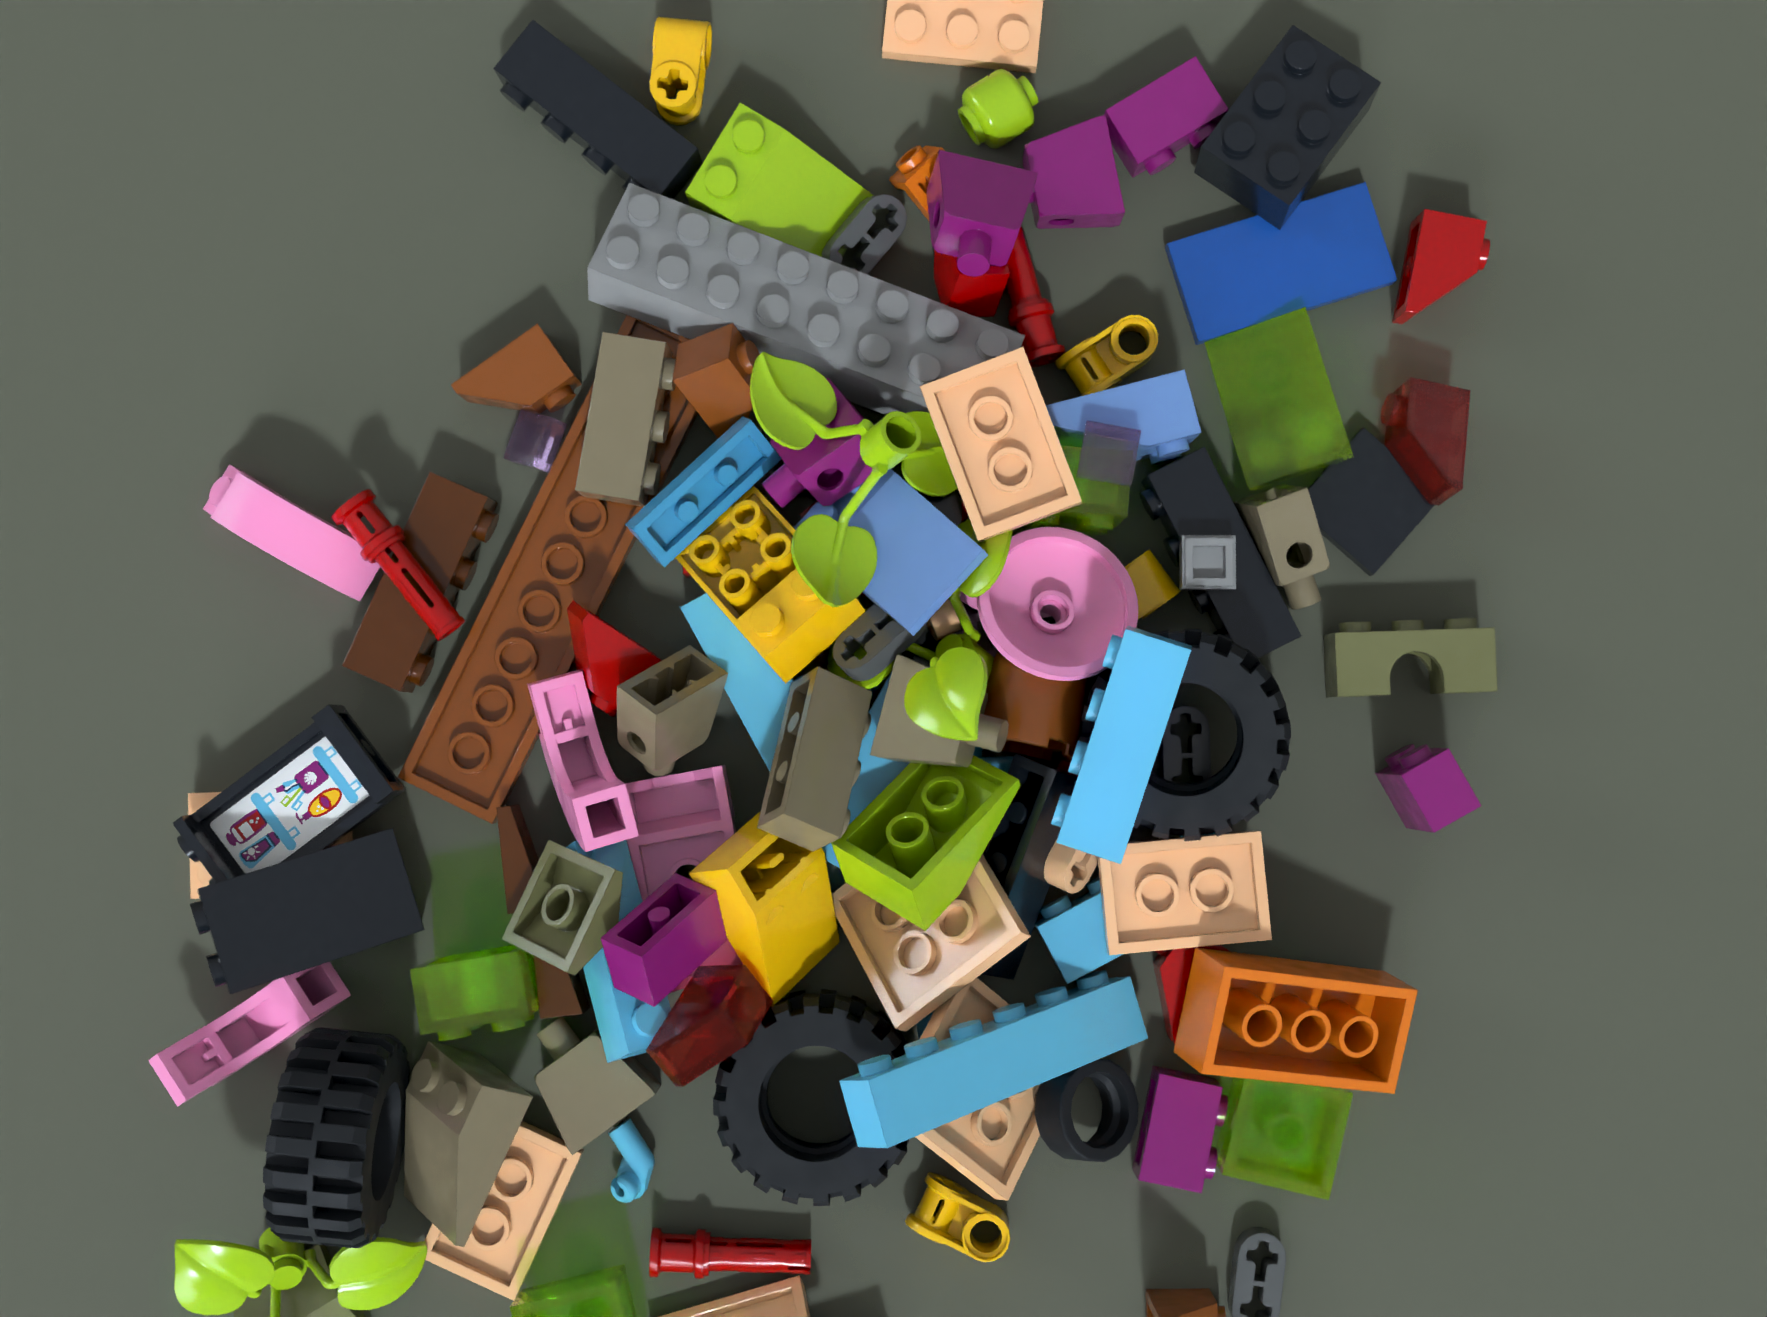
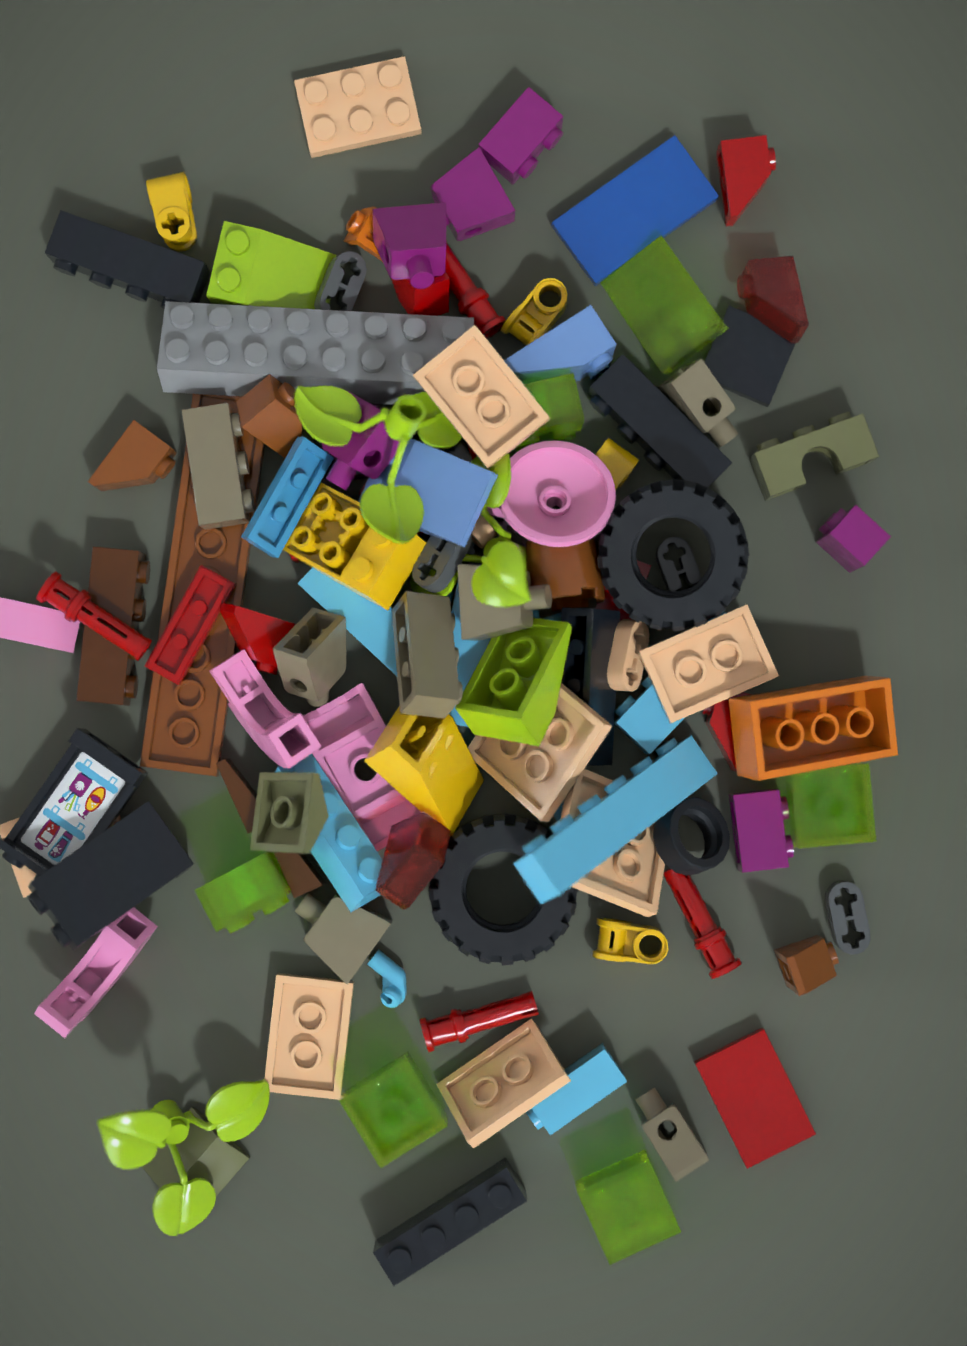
camera: 20 degrees left, 0 degrees up
(336, 1138) = (182, 1021): black tyre -> none
(457, 1135) = (263, 998): dark tan slope -> none
(522, 616) = (190, 625): none -> red tile
(535, 441) = (158, 502): clear purple tile -> none
(664, 939) = (362, 810): magenta brick -> none
(998, 108) = (403, 167): lime head -> none
(1065, 1244) = (708, 936): none -> red pin
(1108, 453) = (557, 379): tile -> none
(1123, 743) = (631, 573): medium azure brick -> none
(1207, 562) = (651, 433): light grey tile -> none
(1286, 127) = (607, 115): black brick -> none

